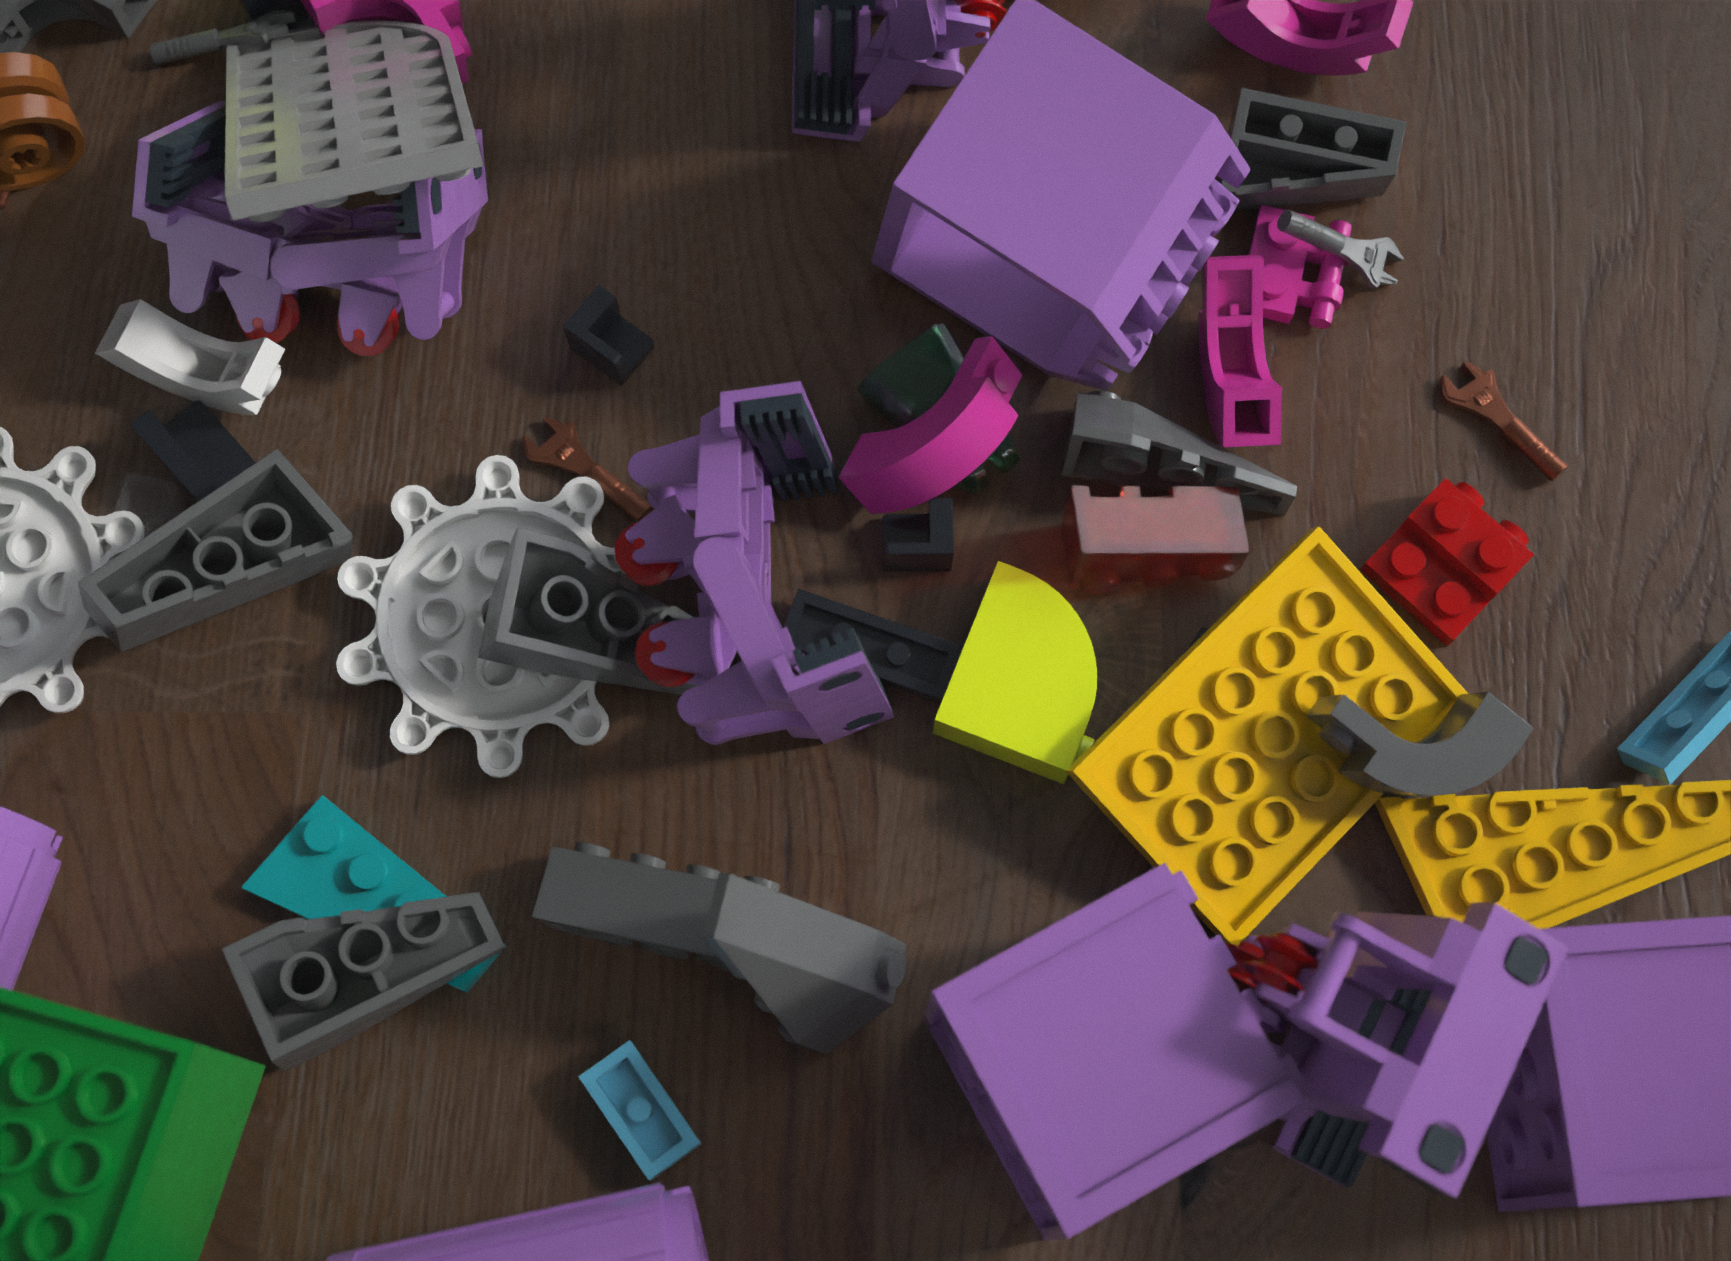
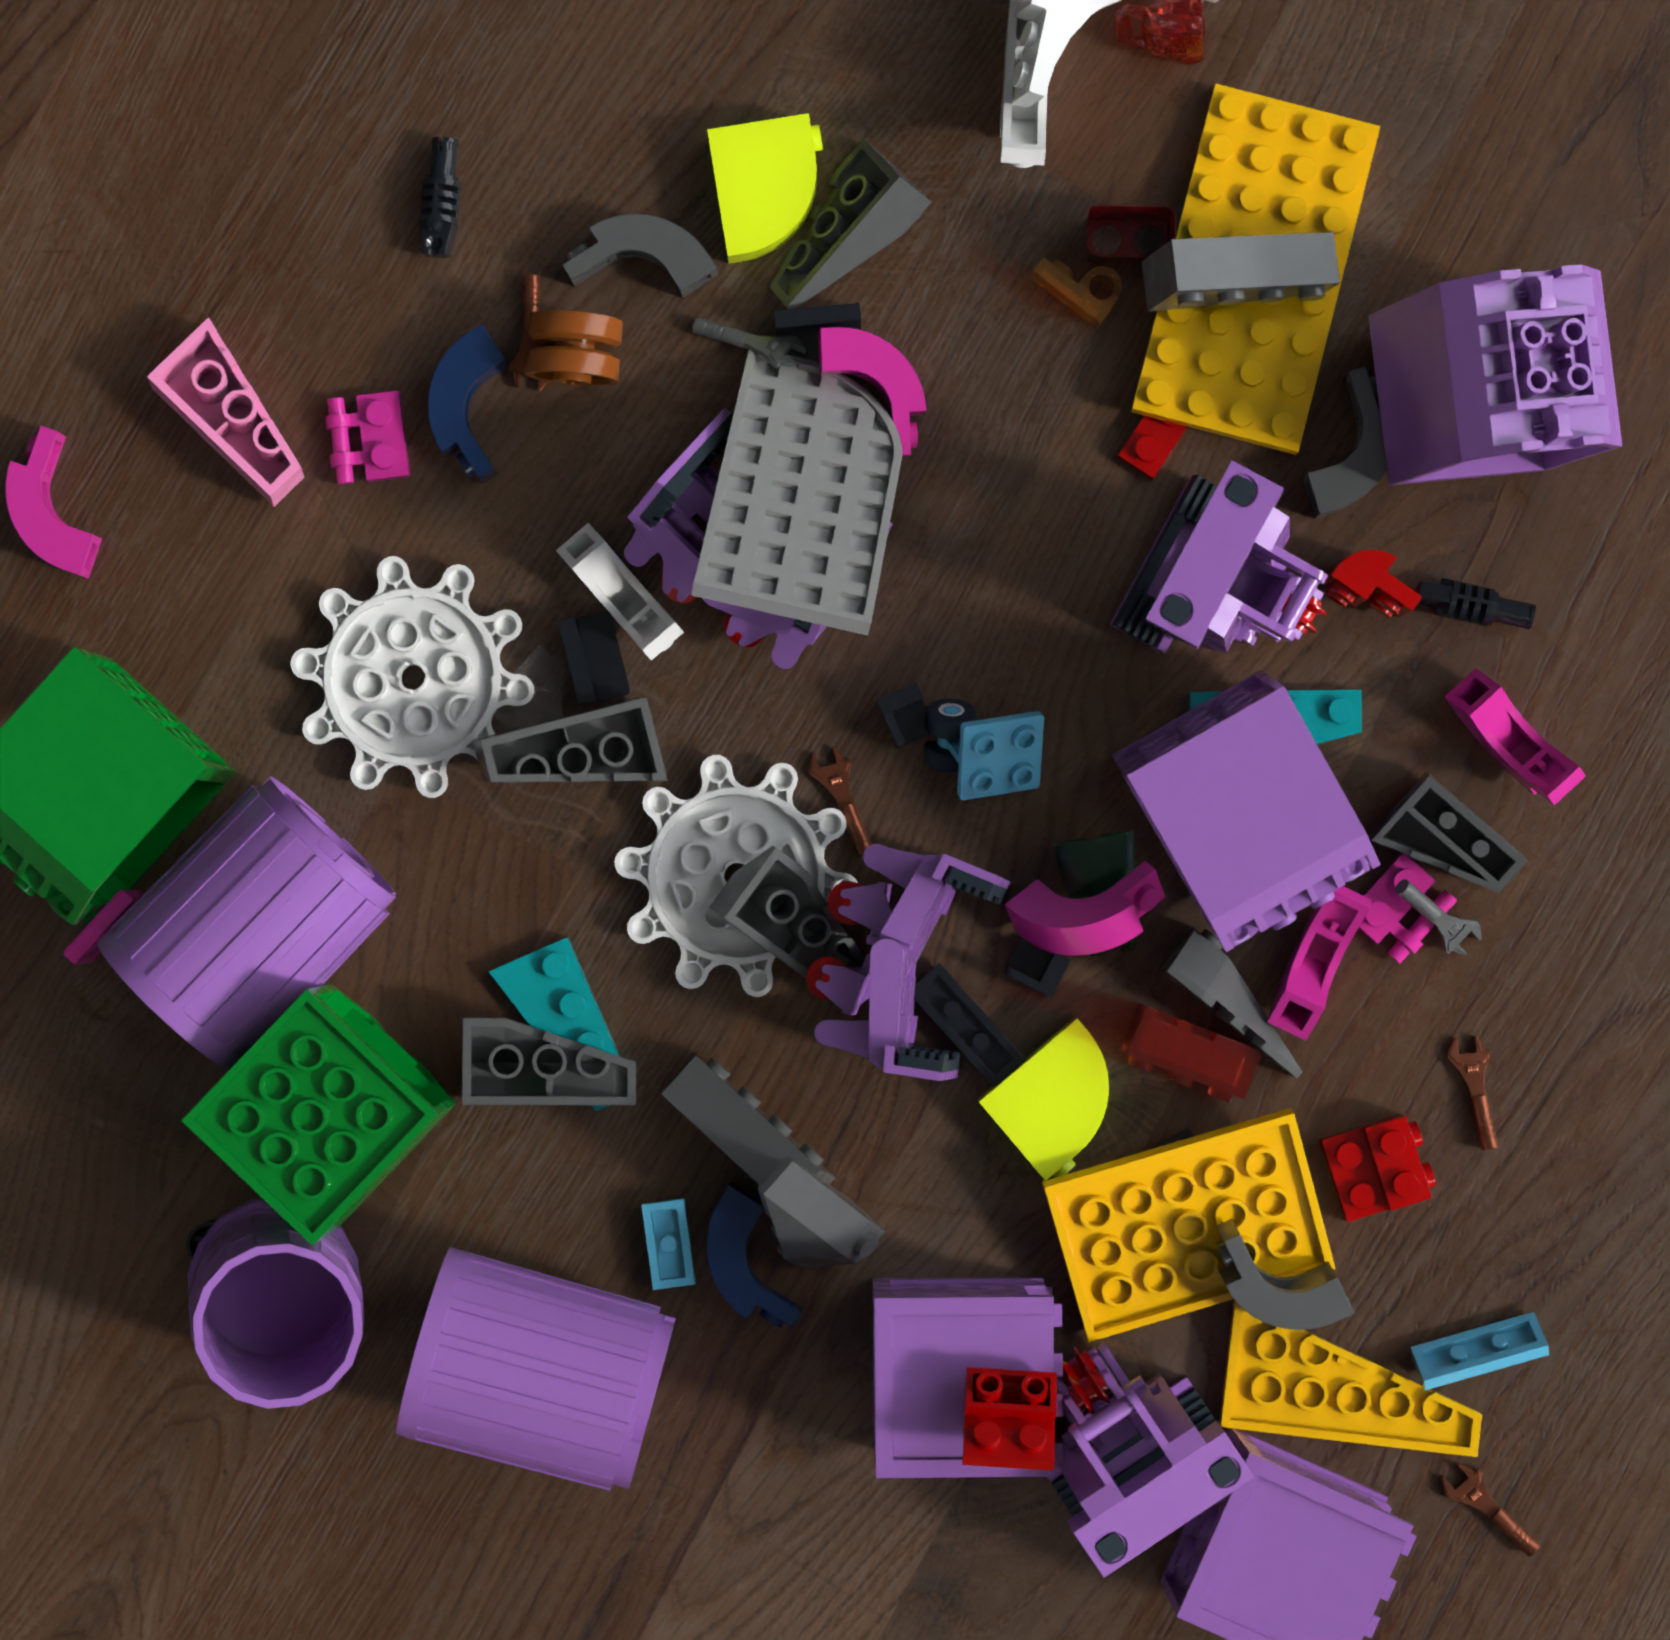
camera: 30 degrees right, 15 degrees up
(710, 1058) = (728, 1262): none -> dark blue arch
(735, 321) = (989, 753): none -> medium azure plate
(1202, 1047) = (1009, 1418): none -> red brick

